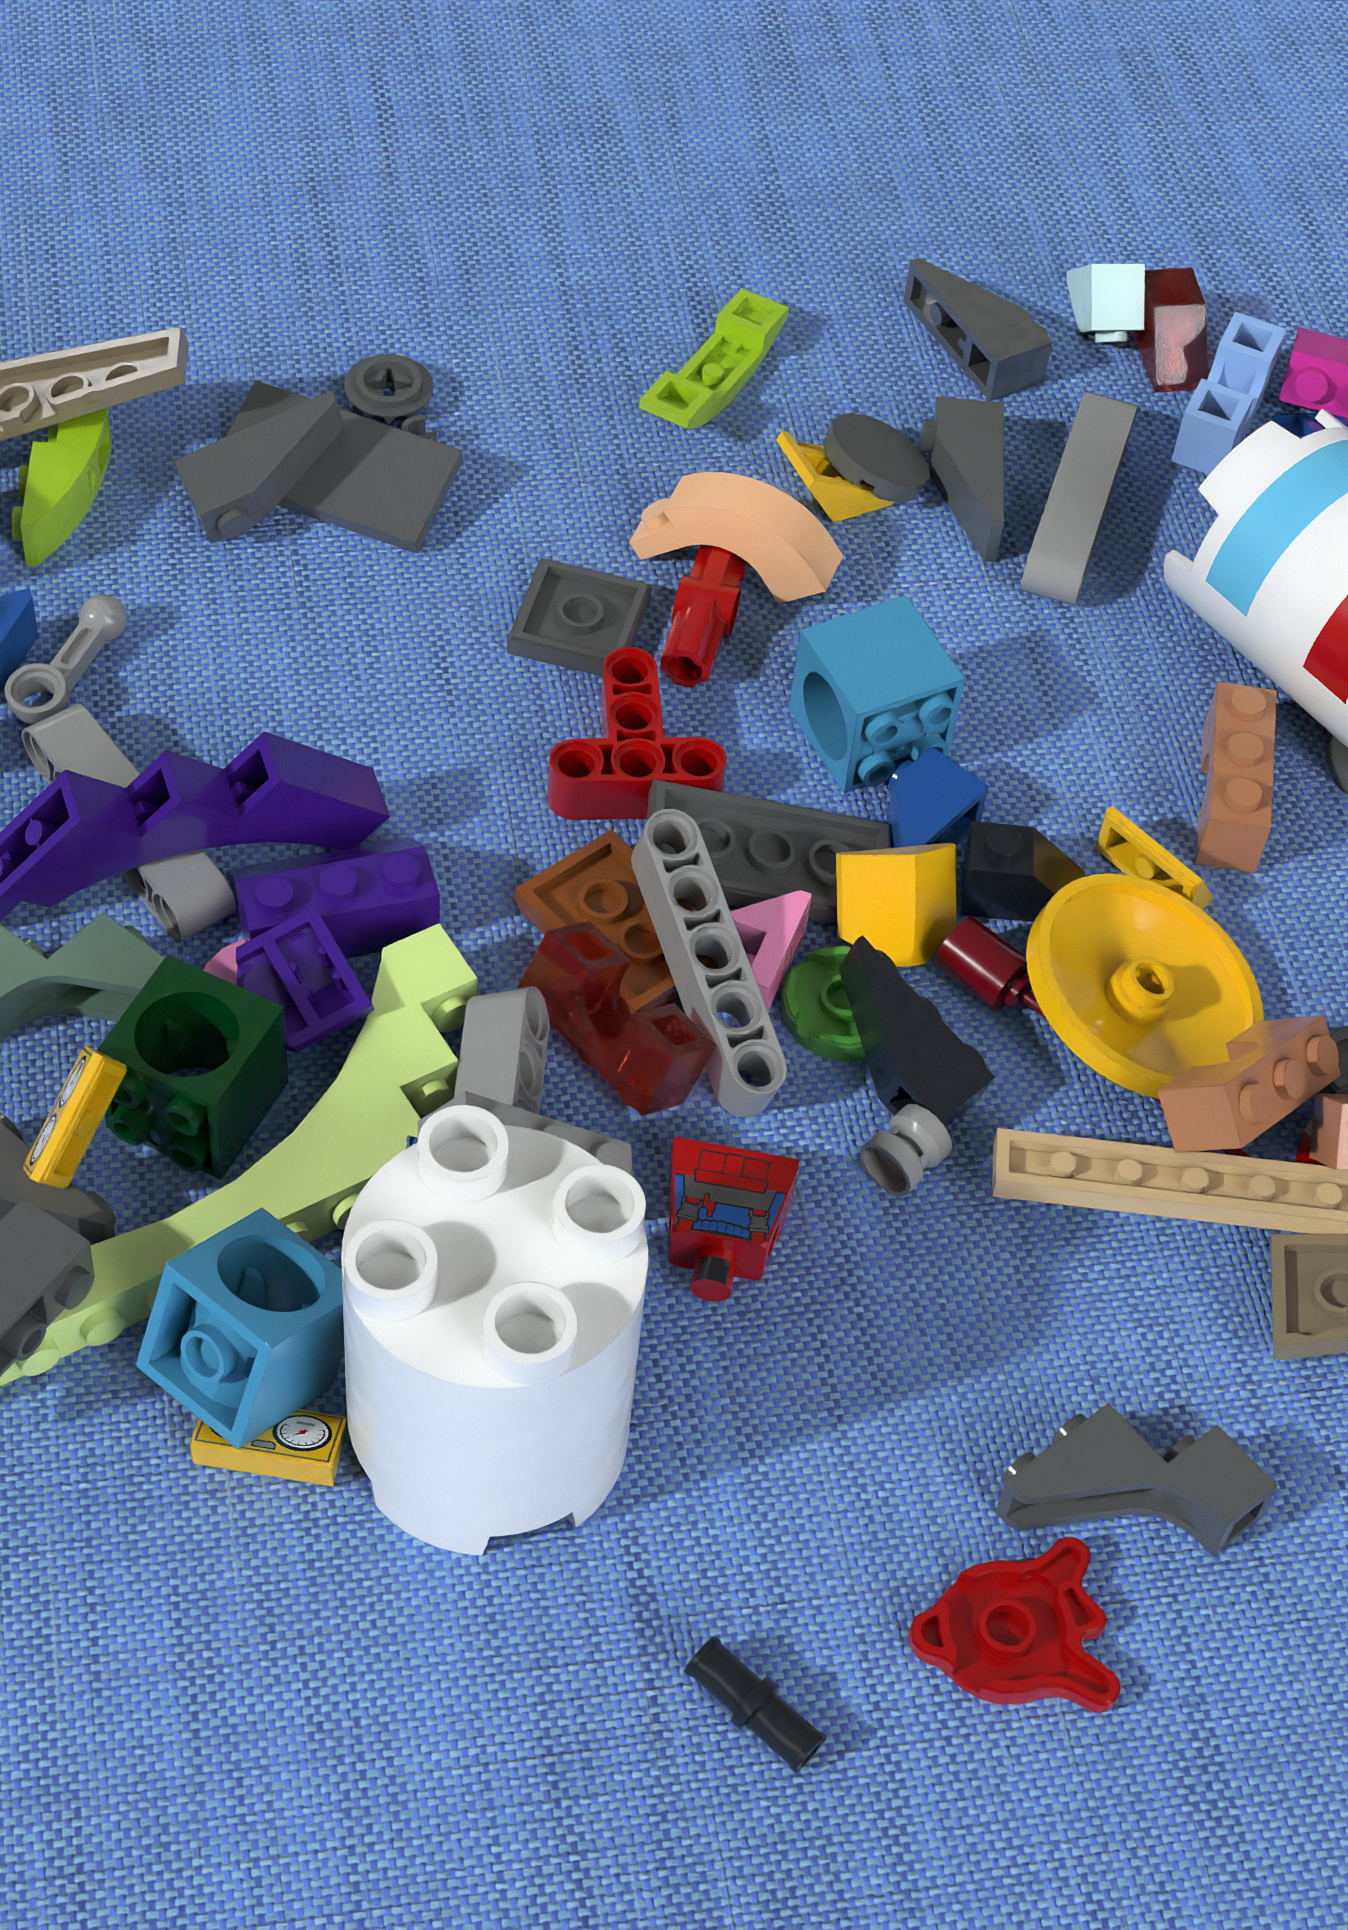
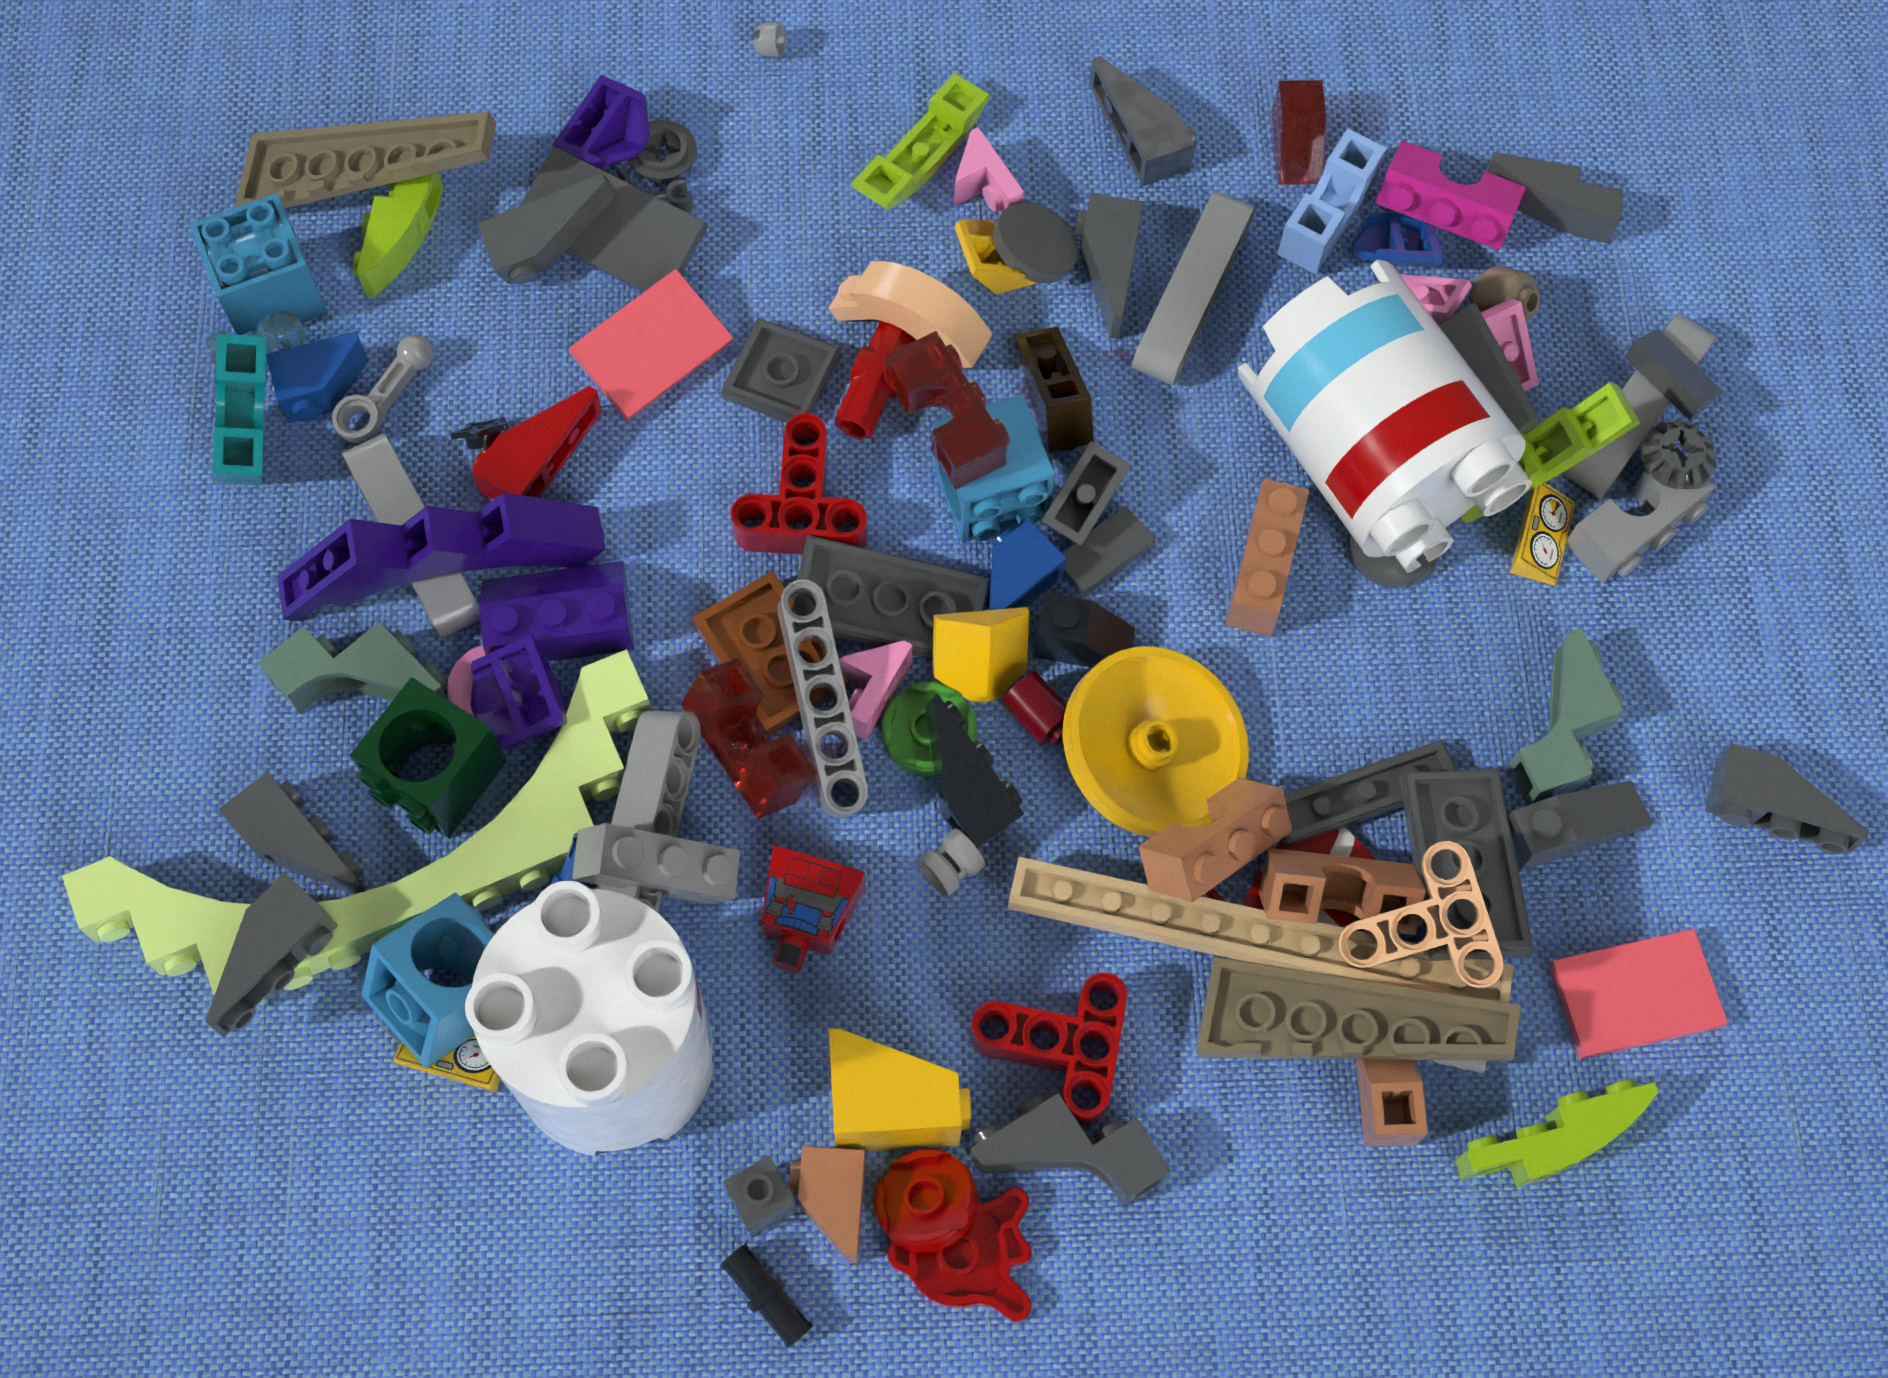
camera: 10 degrees right, 15 degrees up
(74, 1118) = (330, 806): yellow slope -> none
(205, 702) = (482, 433): none -> black plate
(283, 702) = (535, 451): none -> red slope
(321, 353) = (607, 125): none -> dark purple slope
(409, 592) = (651, 345): none -> coral tile
(504, 266) = (770, 39): none -> light grey hinge
(727, 1573) = (760, 1196): none -> dark grey brick
(803, 391) = (985, 173): none -> bright pink slope
(824, 1567) = (832, 1194): none -> nougat slope
(854, 635) = (931, 376): none -> clear red arch
(887, 1426) = (892, 1098): none -> yellow slope
(946, 603) = (1055, 389): none -> dark brown slope
(953, 1561) = (926, 1200): none -> red tile
(999, 711) = (1085, 493): none -> dark grey slope
(1033, 784) = (1106, 551): none -> dark grey tile
(1102, 1338) = (1070, 1034): none -> red beam
(1108, 300) = (1252, 99): light aqua slope -> none
(1144, 858) = (1188, 627): yellow slope -> none

